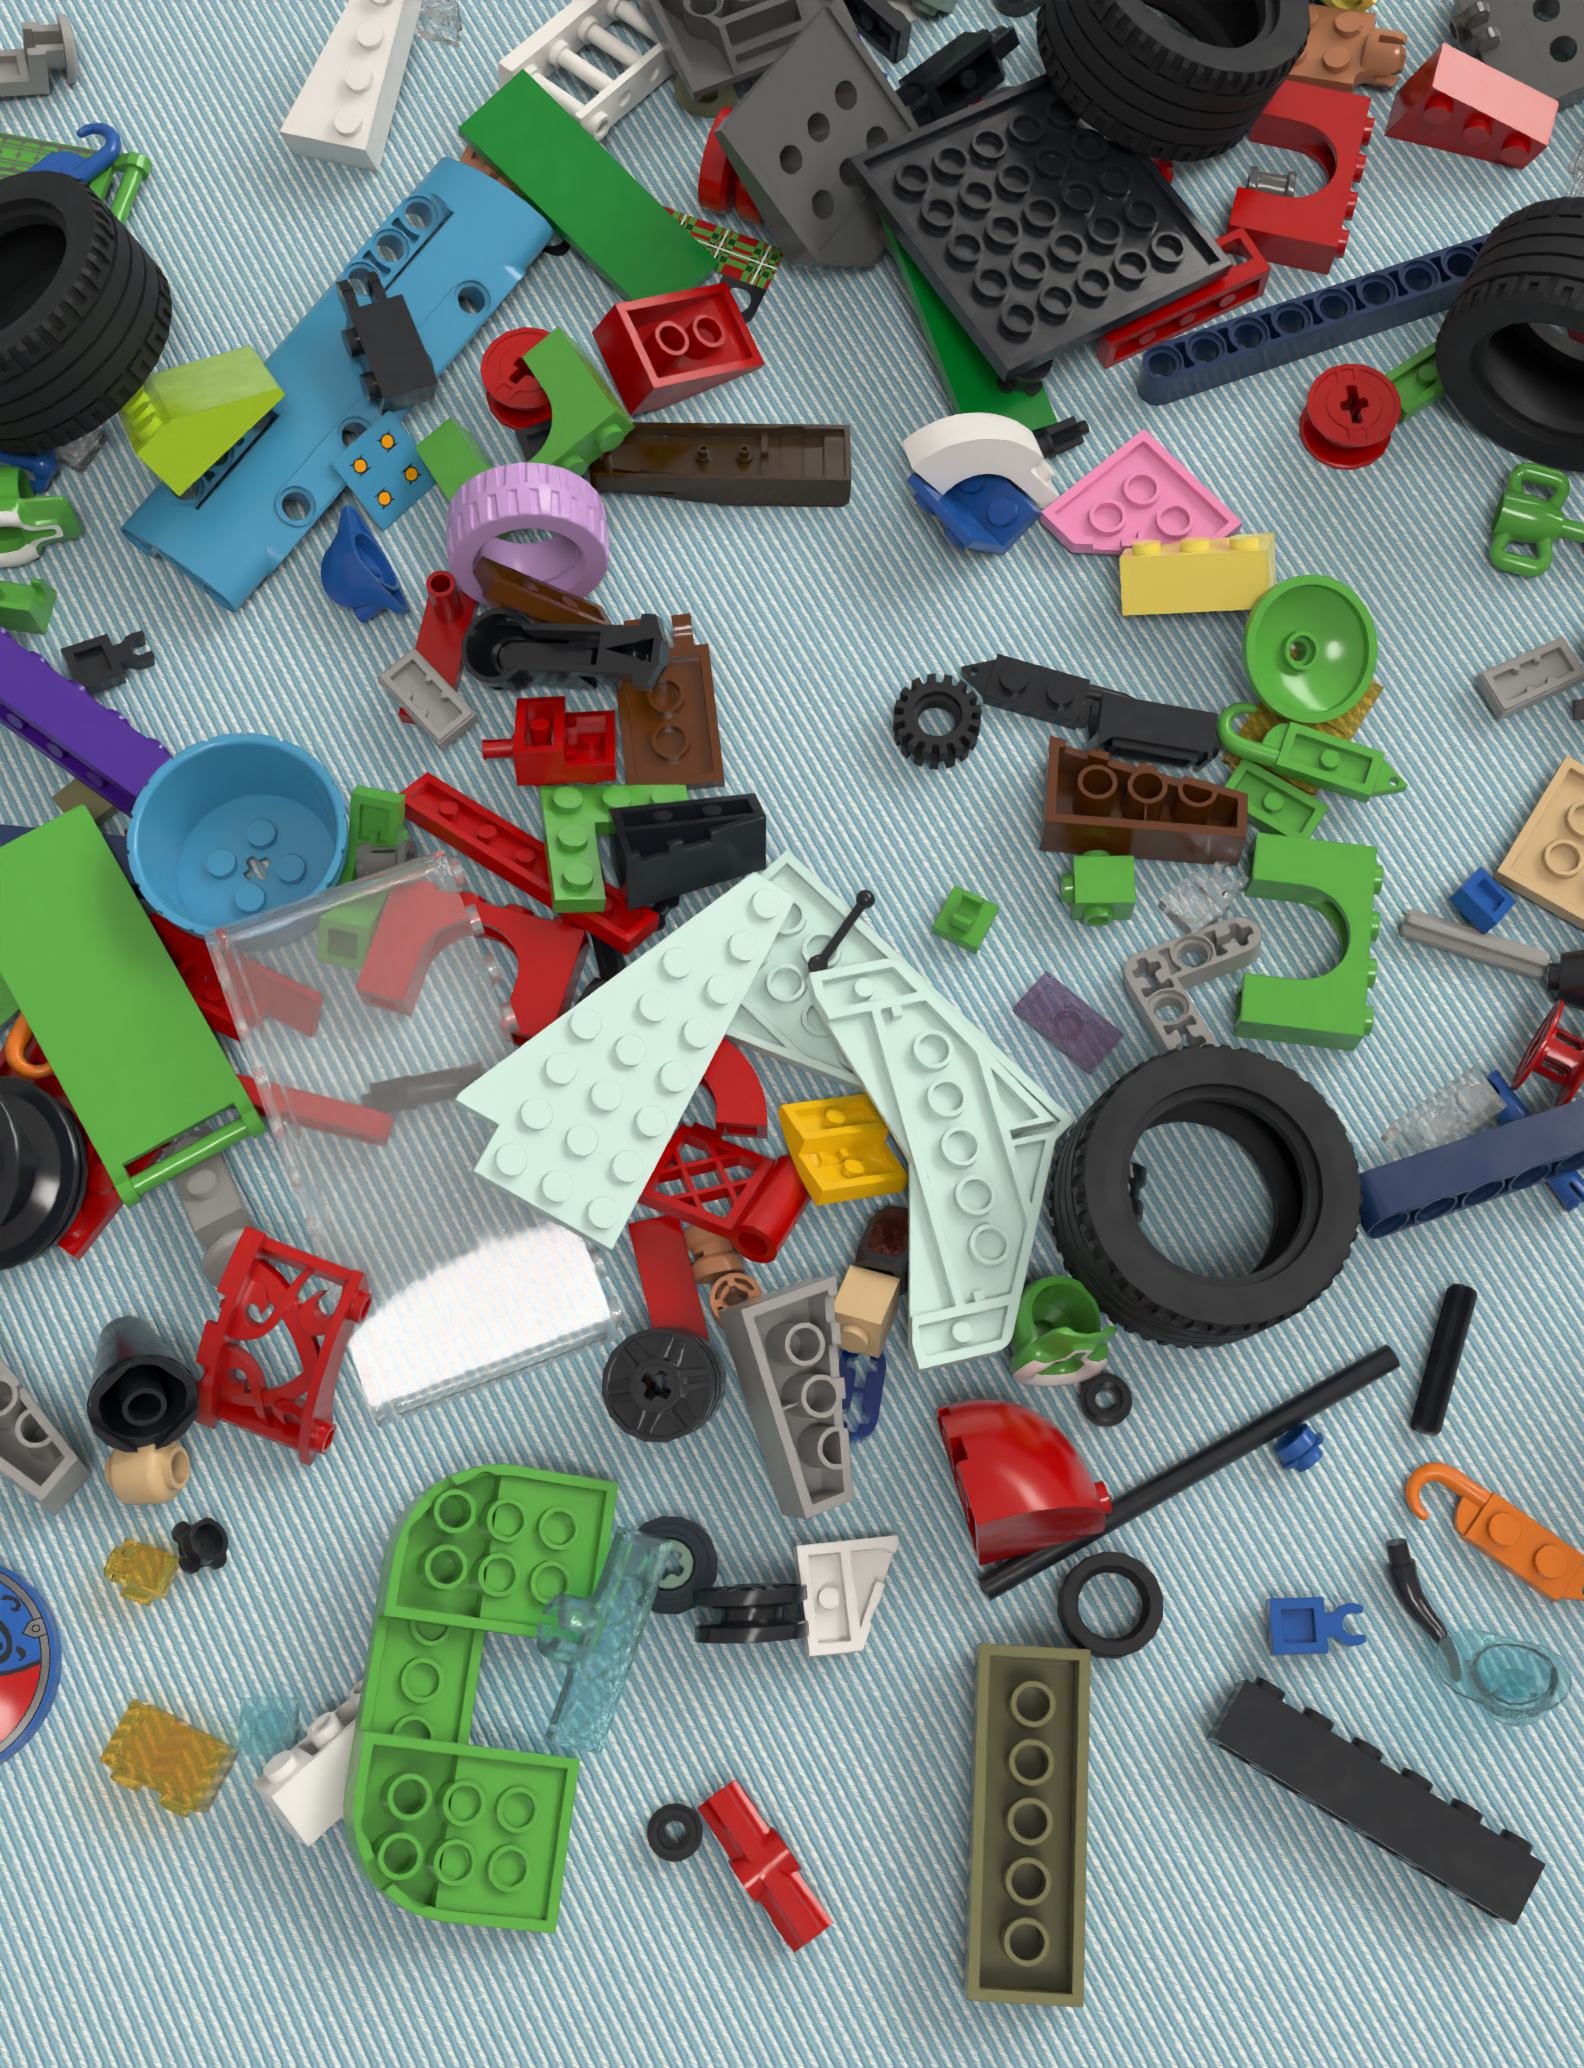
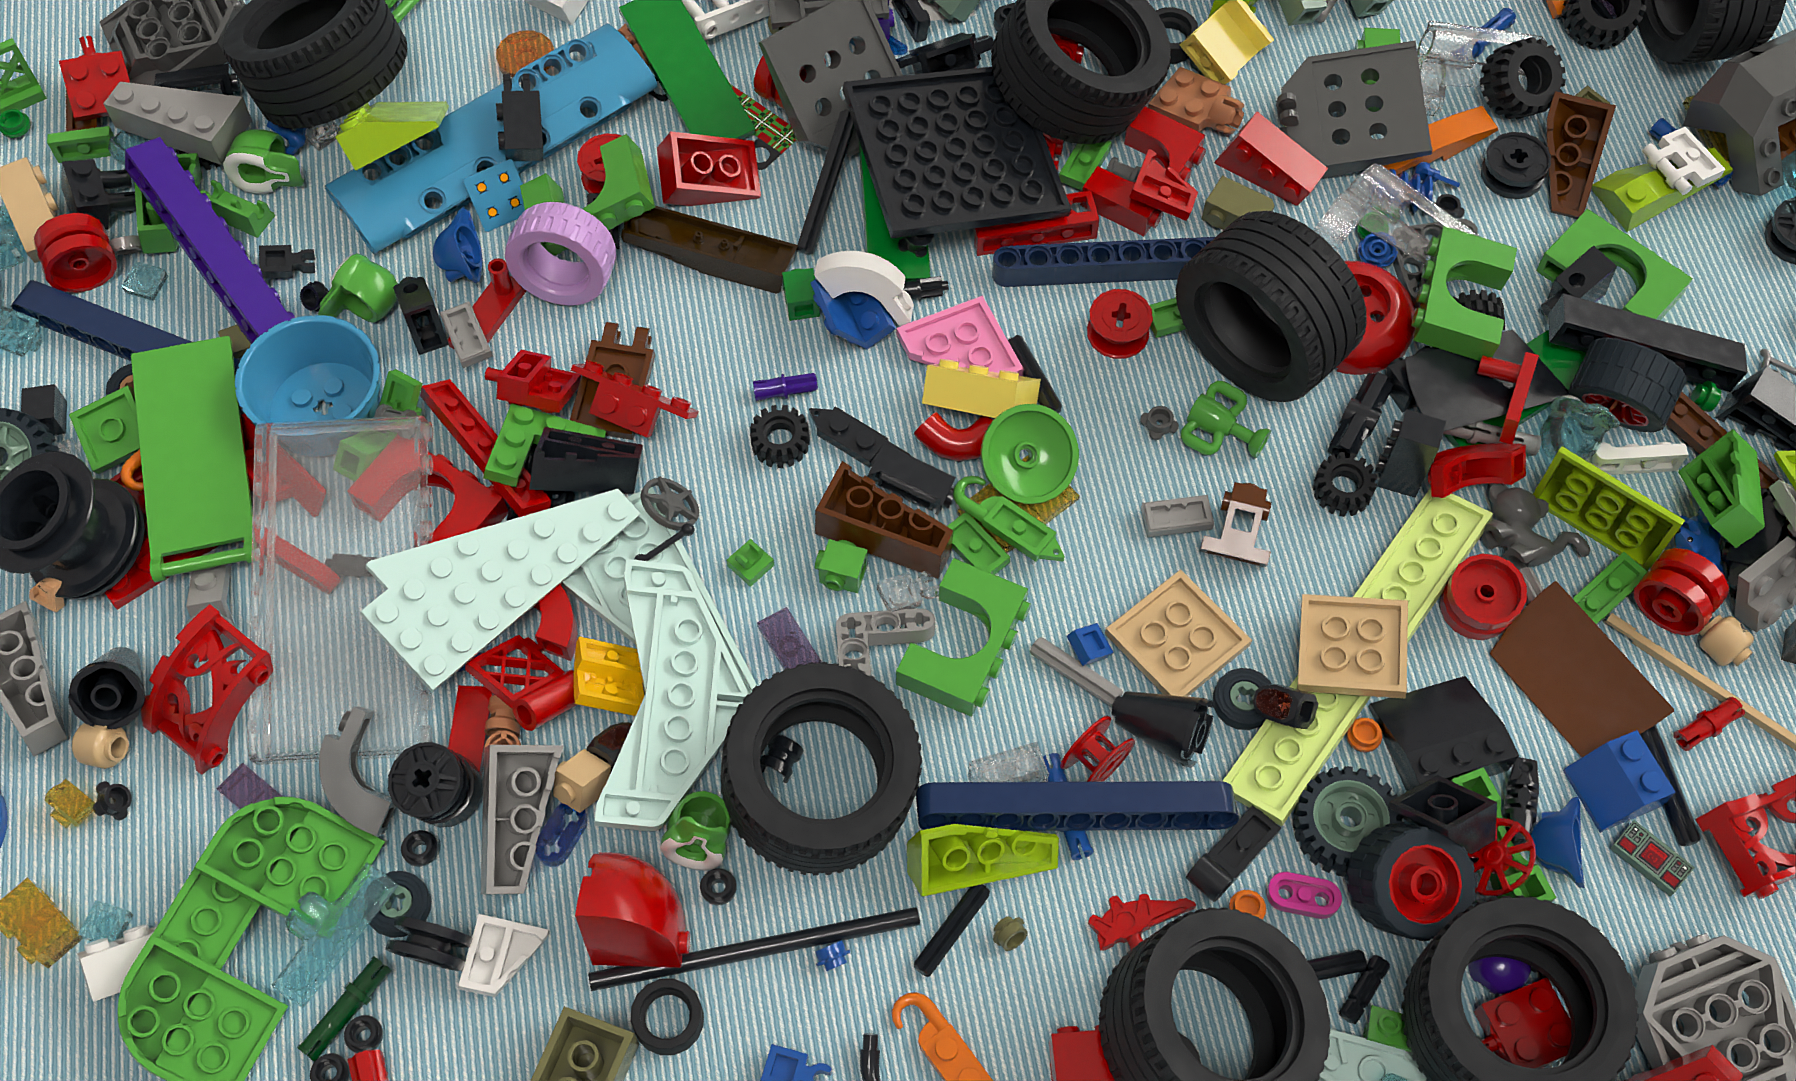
camera: 15 degrees right, 10 degrees down
(169, 709) = (312, 295): none -> black plate
(245, 673) = (360, 288): none -> bright green piece
(327, 236) = (522, 49): none -> clear orange tile
(337, 670) = (416, 302): none -> black torso
(393, 1469) = (246, 787): none -> clear purple tile
(536, 599) = (557, 295): reddish brown plate -> none
(552, 1437) = (342, 779): none -> dark grey arch
(563, 653) = (556, 329): black piece -> none
(659, 1737) = (345, 1007): none -> dark green pin
(661, 1460) = (415, 839): none -> black plate
(682, 1757) = (356, 1026): none -> black plate
(709, 736) = (627, 403): none -> red bracket
(823, 868) = (669, 503): none -> dark grey wheel
(862, 317) = (826, 183): none -> black axle
(884, 498) = (800, 294): none -> green brick
(913, 644) = (784, 386): none -> dark purple axle
(1189, 660) = (950, 441): none -> red cylinder
(1210, 188) = (1083, 163): none -> bright green plate
(1288, 555) = (1032, 369): none -> black axle
(1348, 196) = (1163, 188): none -> red wing
(1441, 1256) = (975, 855): none -> lime wedge
(1457, 198) = (1232, 200): none -> olive hinge
(1459, 536) = (1160, 414): none -> dark grey plate
(1524, 1341) = (1009, 933): none -> olive plate

